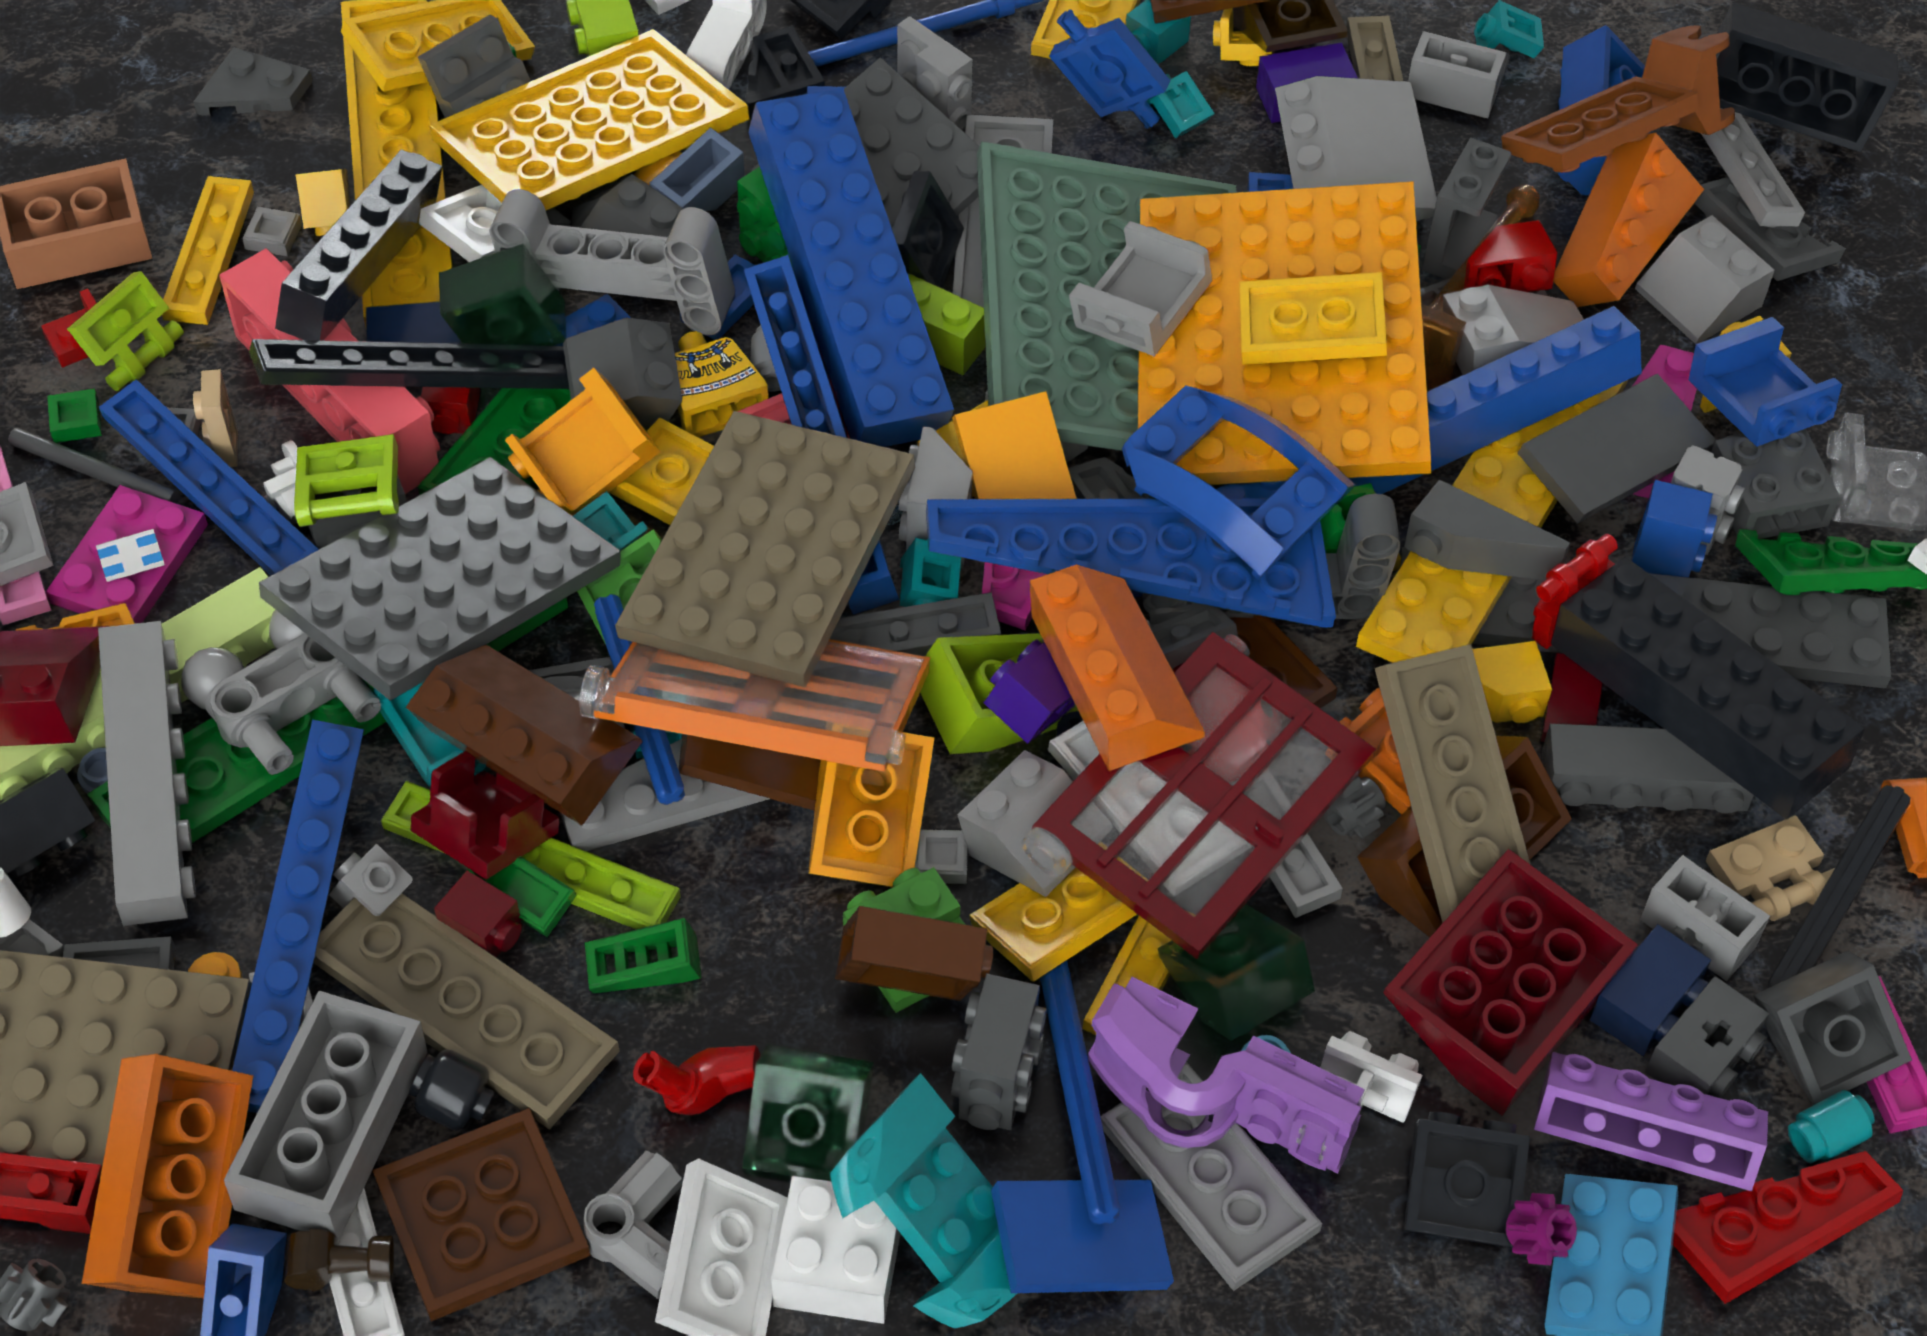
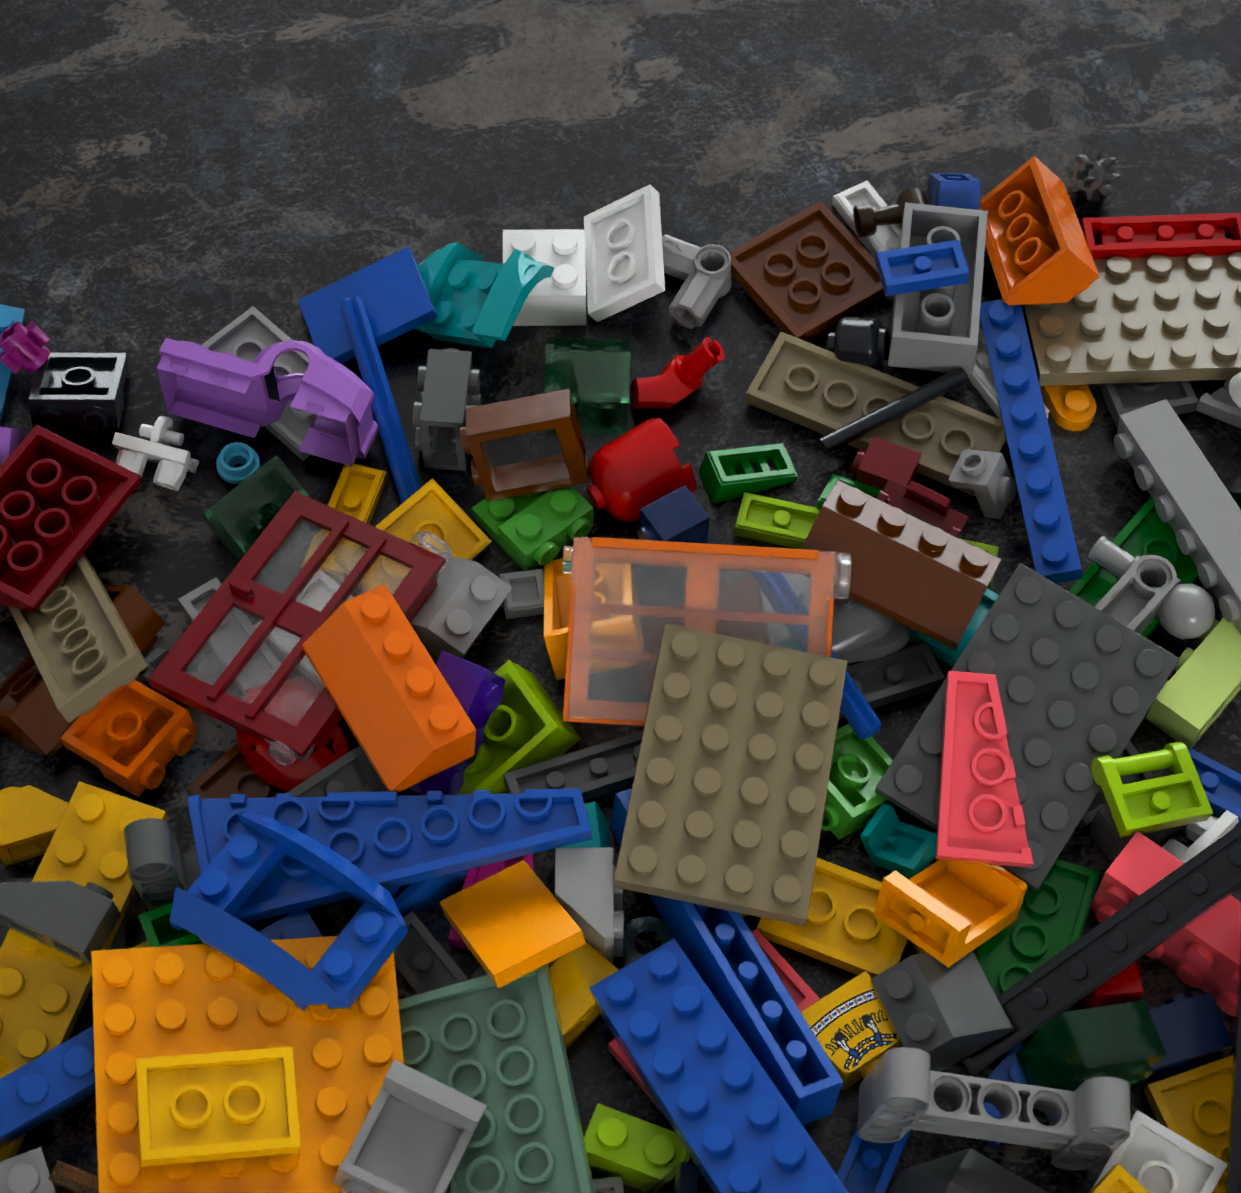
camera: 170 degrees right, 5 degrees up
(349, 1085) = (922, 267): none -> blue plate
(456, 974) = (892, 410): none -> black bar
(518, 513) = (978, 789): none -> coral wing
(760, 851) = (674, 519): none -> dark blue brick
(778, 939) = (637, 471): none -> red cylinder

